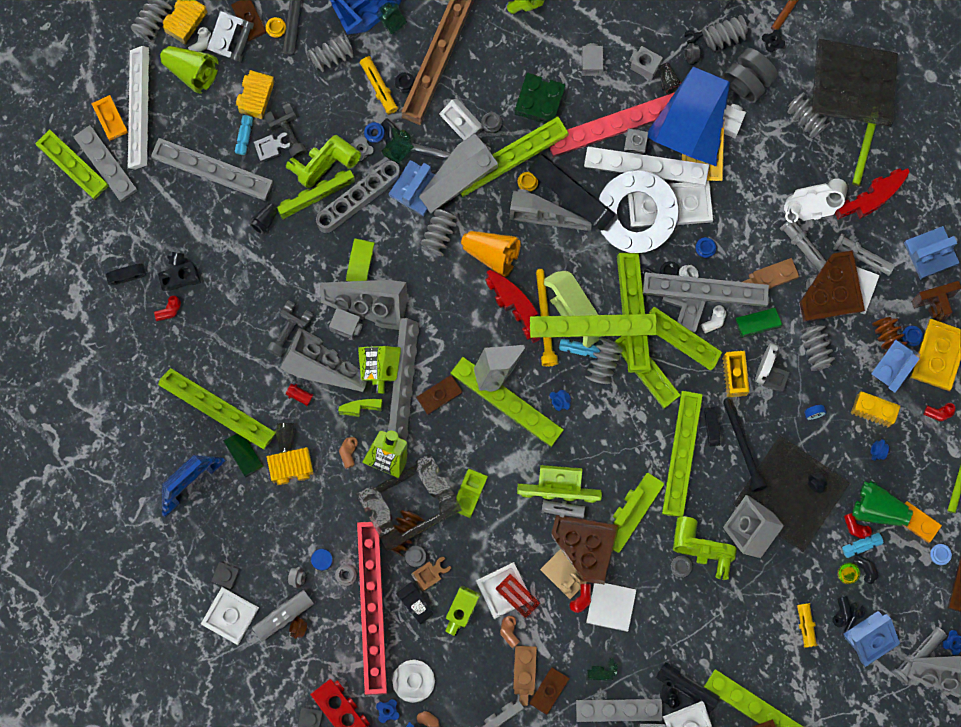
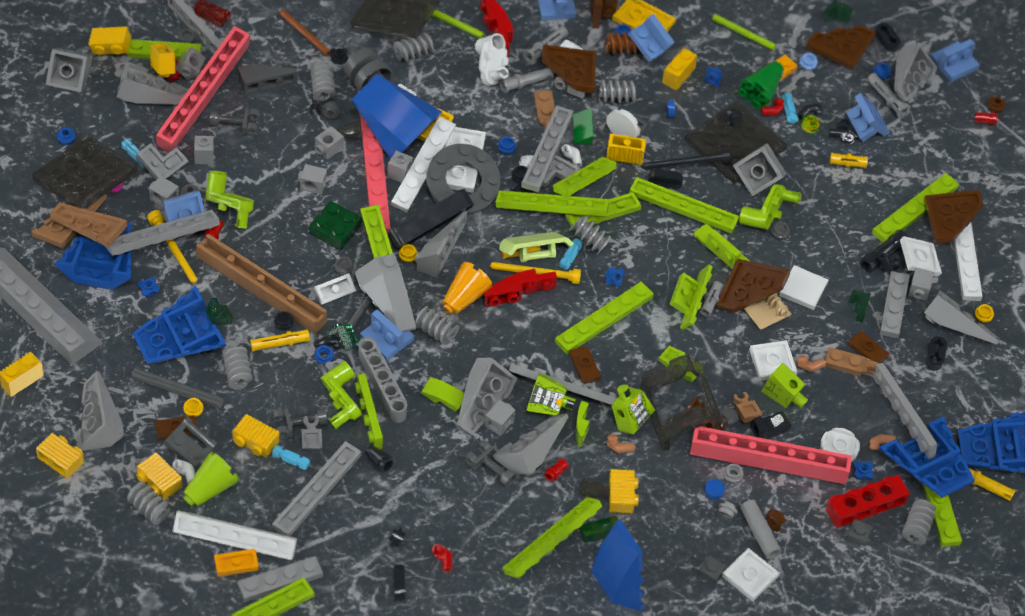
camera: 80 degrees left, 25 degrees down
(179, 276) = (415, 538): black leg -> none
(496, 365) = (578, 304): light grey slope -> none
(505, 583) = (787, 340): clear red tile -> none
(583, 600) = (798, 307): red arm -> none
(593, 325) = (559, 228): lime plate -> none
(940, 414) = (692, 31): red arm -> none

